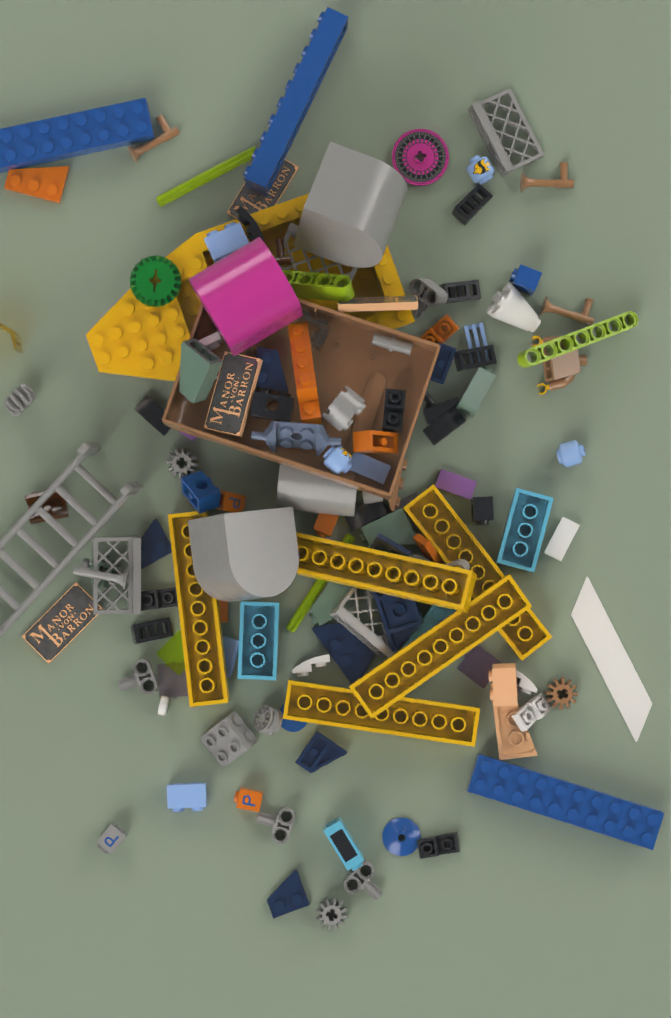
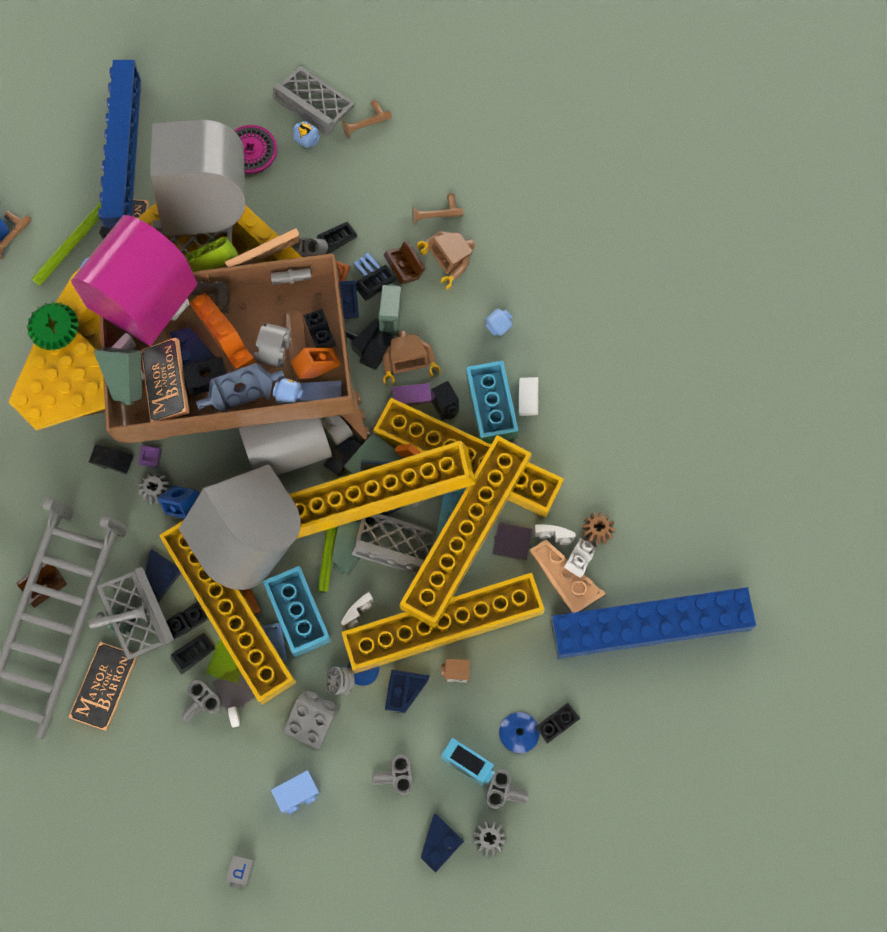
camera: 30 degrees left, 15 degrees down
(248, 799) = (357, 766): orange brick -> none
(325, 524) = (310, 476): orange brick -> none
(346, 649) = (381, 581): dark blue wing -> none
(372, 758) = (456, 670): none -> medium nougat brick
(399, 617) = (416, 525): dark blue wing -> none
(463, 213) = (308, 176): black slope -> none
(470, 446) = (407, 354): none -> medium nougat torso
(504, 684) = (542, 540): light nougat brick -> none
(508, 347) = (405, 263): none -> reddish brown bracket
(513, 309) = (389, 228): white cone -> none
(525, 279) = (386, 199): blue brick -> none
(570, 342) = (455, 223): lime beam -> none
(611, 659) = (627, 480): white sticker -> none

